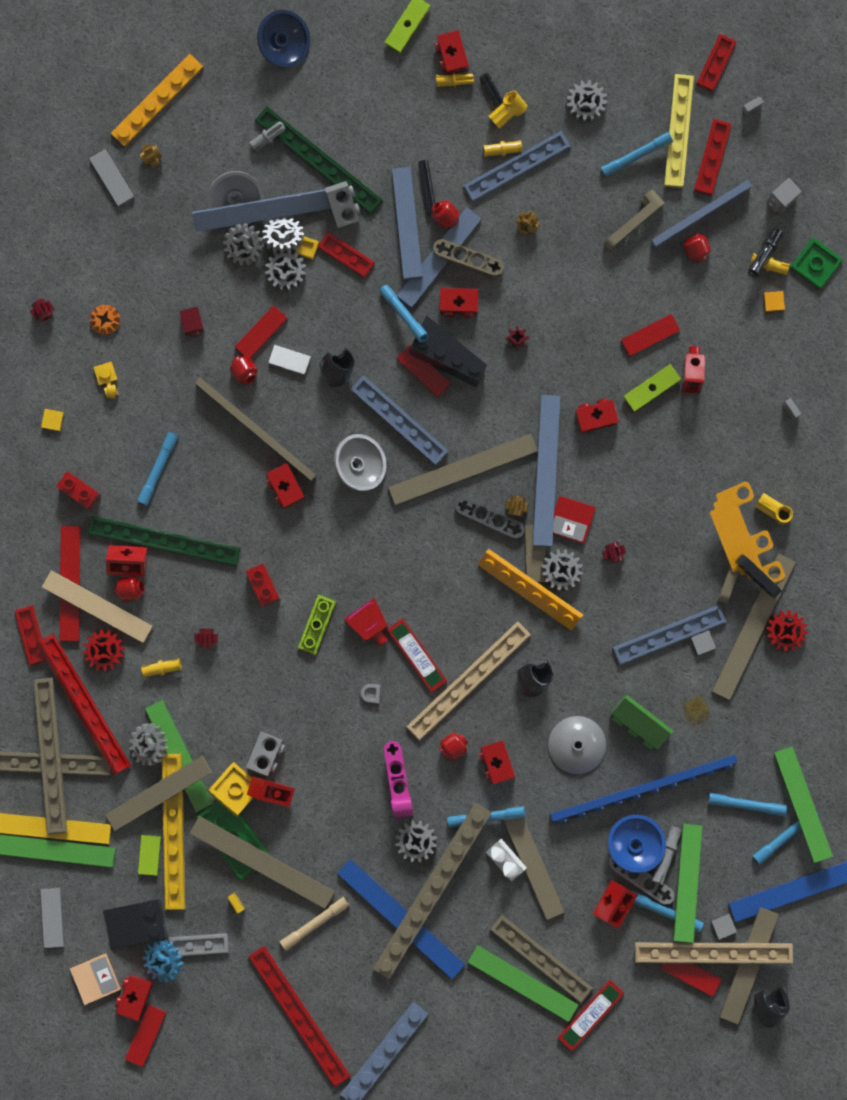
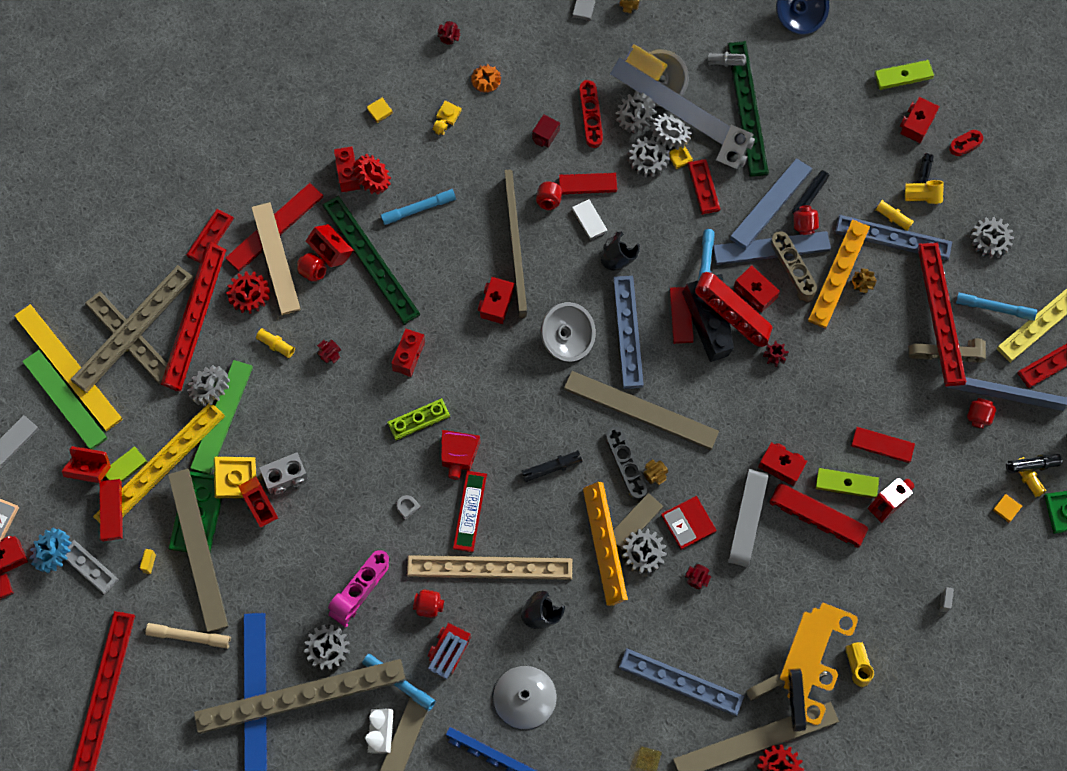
camera: 40 degrees right, 15 degrees down
(101, 477) = (371, 174): none -> red gear
(124, 881) = (87, 465): none -> red bracket
(135, 923) = (63, 505): black slope -> none
(158, 793) = (178, 426): dark tan tile -> none
(174, 894) = (111, 510): none -> red tile
(210, 274) = (591, 114): none -> red beam
(216, 198) = (646, 62): none -> yellow panel
(441, 570) = (551, 466): none -> black pin
(453, 80) = (903, 139): yellow axle -> none
(461, 336) = (733, 309): none -> red beam
(497, 37) = (968, 146): none -> red beam
(505, 233) = (839, 274): none -> light orange plate
(508, 785) = (456, 639): none -> sand blue tile
(546, 471) = (703, 468): sand blue tile -> none
(605, 198) = (941, 314): none -> red tile
(609, 477) = (748, 518): none -> light grey beam
(641, 723) = (591, 726): bright green slope -> none
(654, 429) = (819, 514): none -> red beam
(703, 642) = (702, 714): light grey tile -> none

